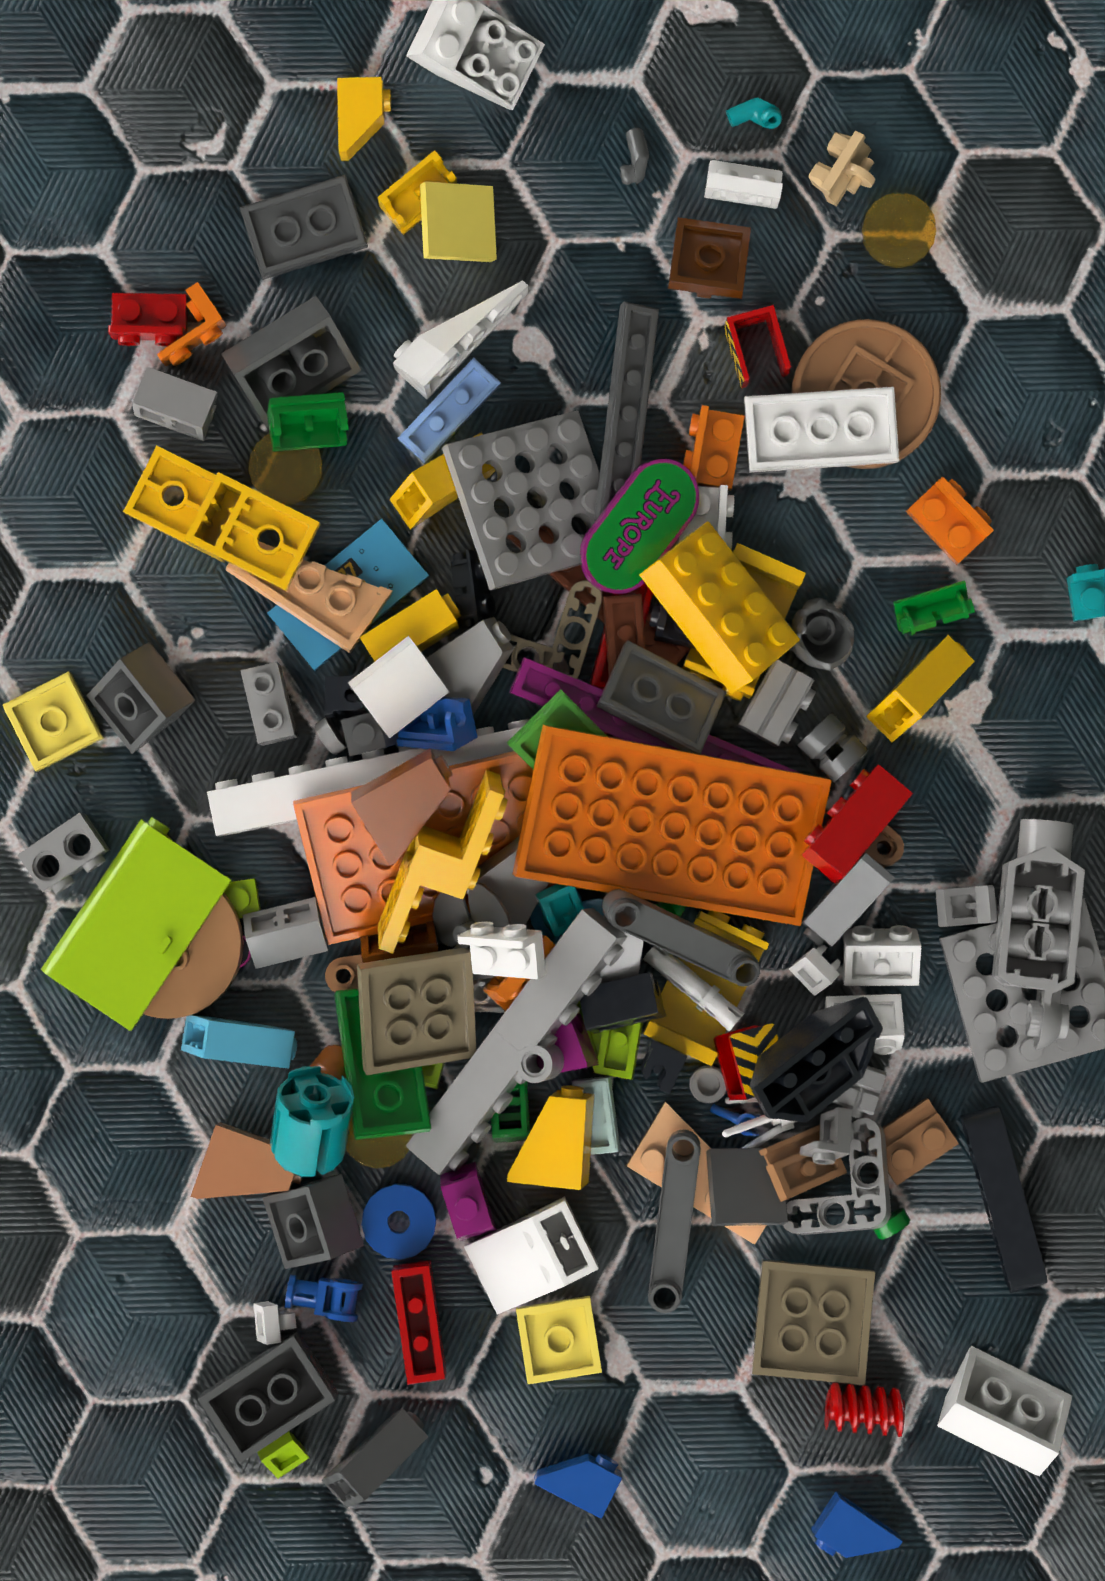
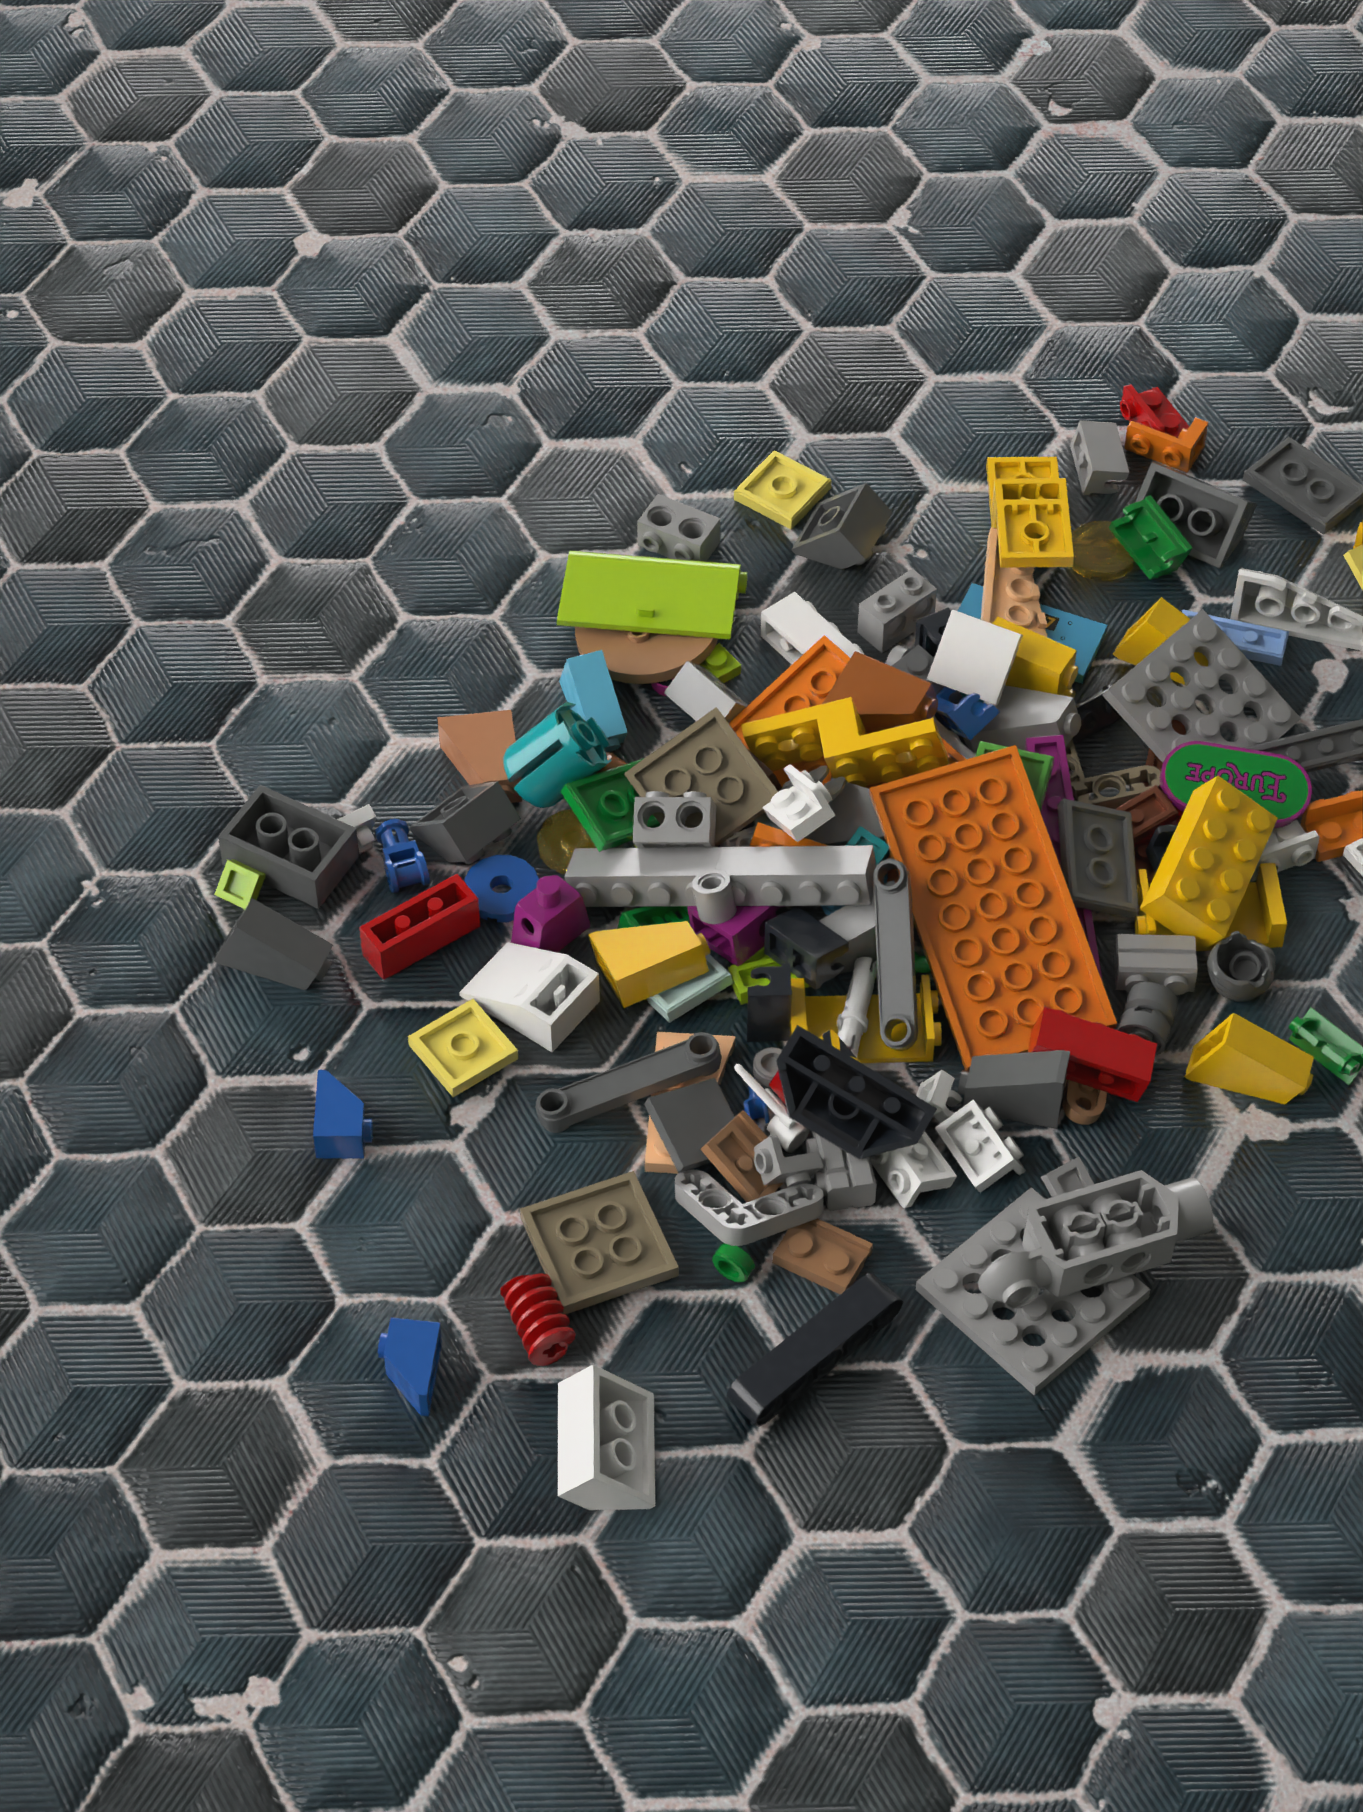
camera: 65 degrees right, 35 degrees down
(455, 1061) = (673, 830): none -> light grey brick

